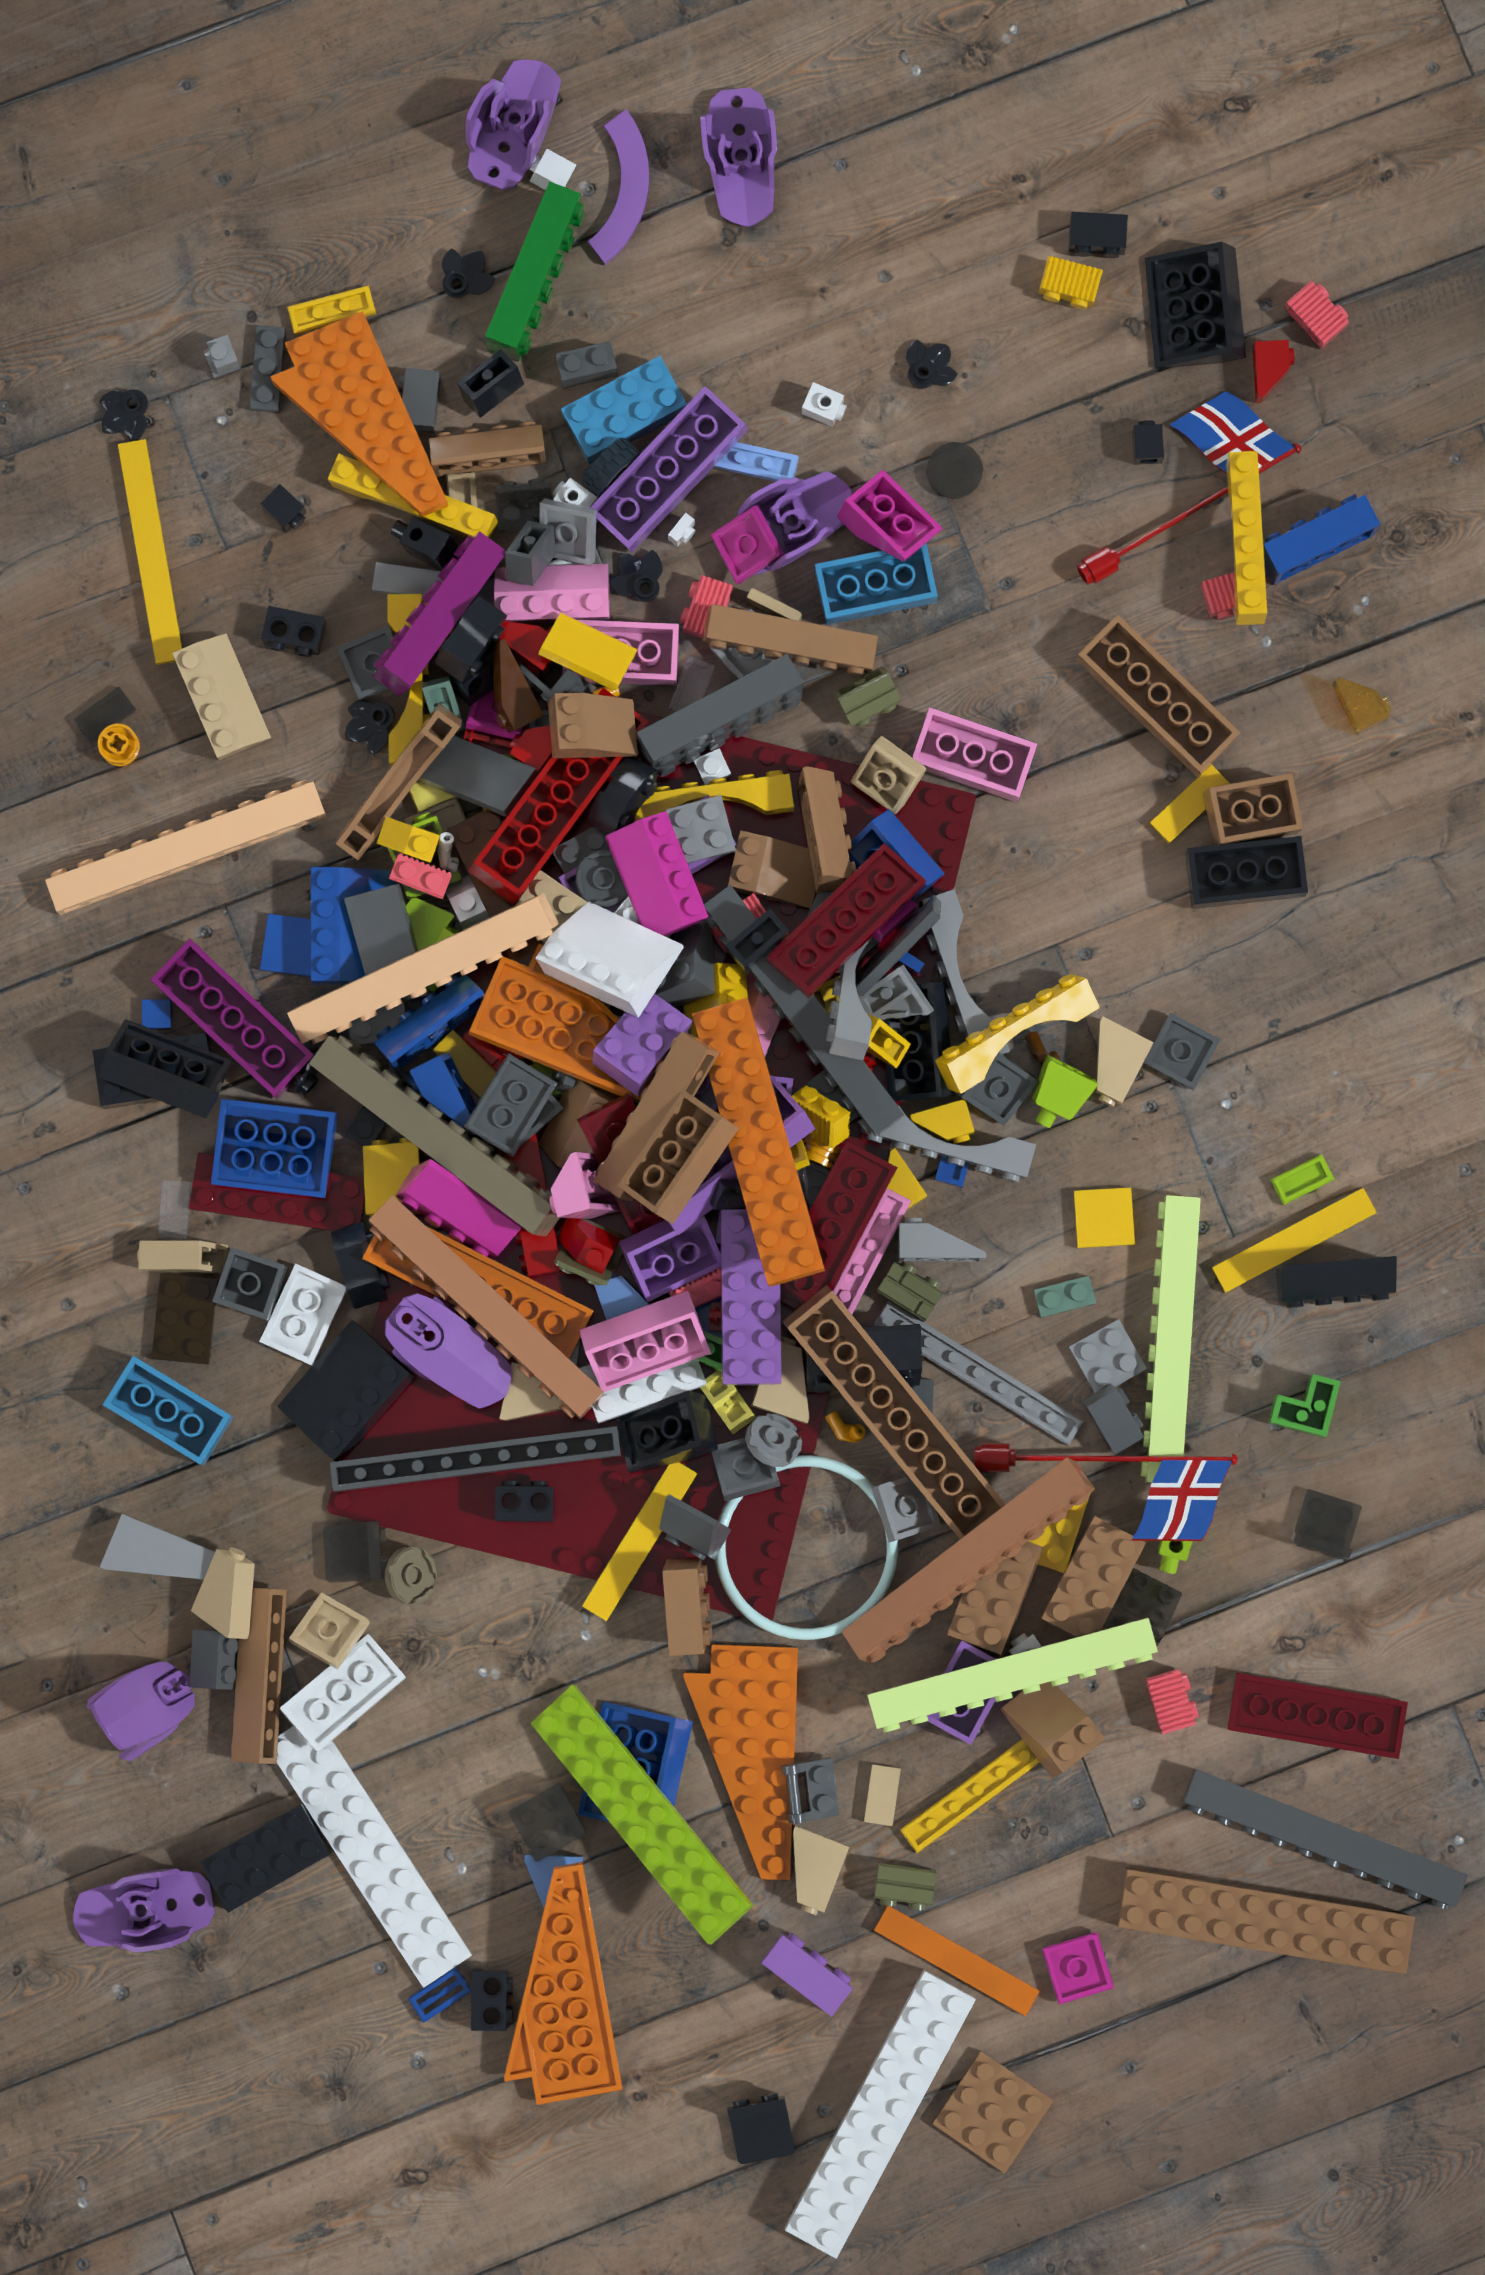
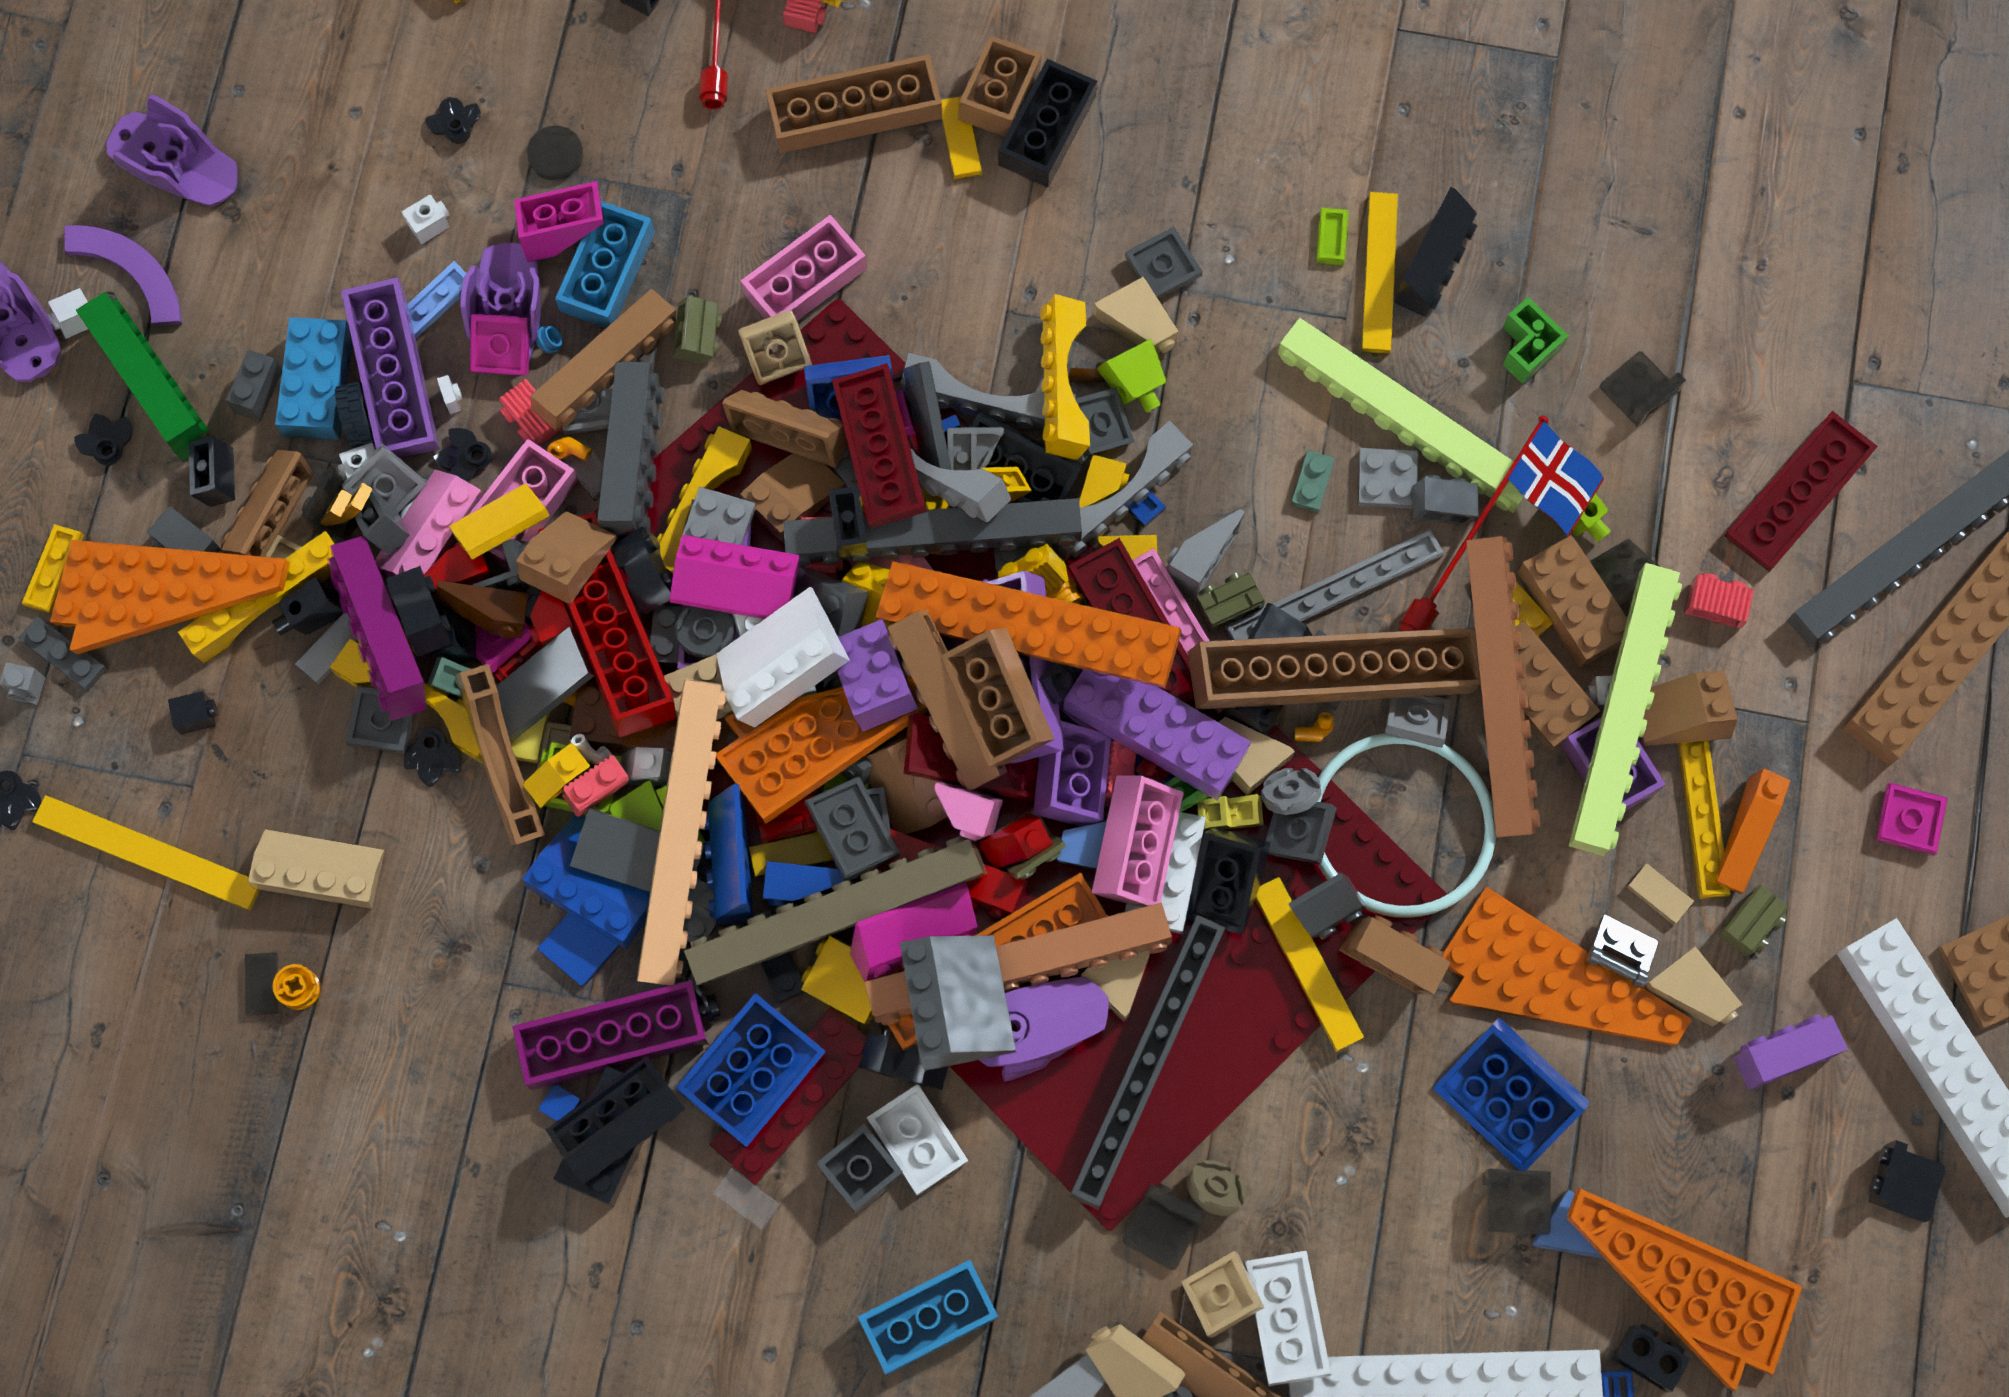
camera: 60 degrees left, 10 degrees down
(182, 1256) = (794, 1217): tan slope -> none
(184, 1319) = (852, 1252): dark brown plate -> none
(186, 847) = (428, 985): light nougat brick -> none
(296, 624) = (299, 765): black brick -> none
(346, 1392) = (1011, 1143): black slope -> none
(419, 1277) = (957, 999): none -> slope
(524, 1511) = (1218, 1046): black brick -> none
(526, 516) = (346, 506): none -> slope
(642, 1814) = (1564, 1108): lime plate -> none
(697, 659) = (567, 447): none -> light orange arm
(712, 766) = (668, 490): white plate -> none
(772, 605) = (555, 363): tan tile -> none
(782, 579) = (549, 339): none -> dark azure plate
(956, 1960) = (1845, 919): orange tile -> none
(981, 1838) = (1751, 828): none -> orange slope
(1104, 1218) = (1265, 409): yellow tile -> none

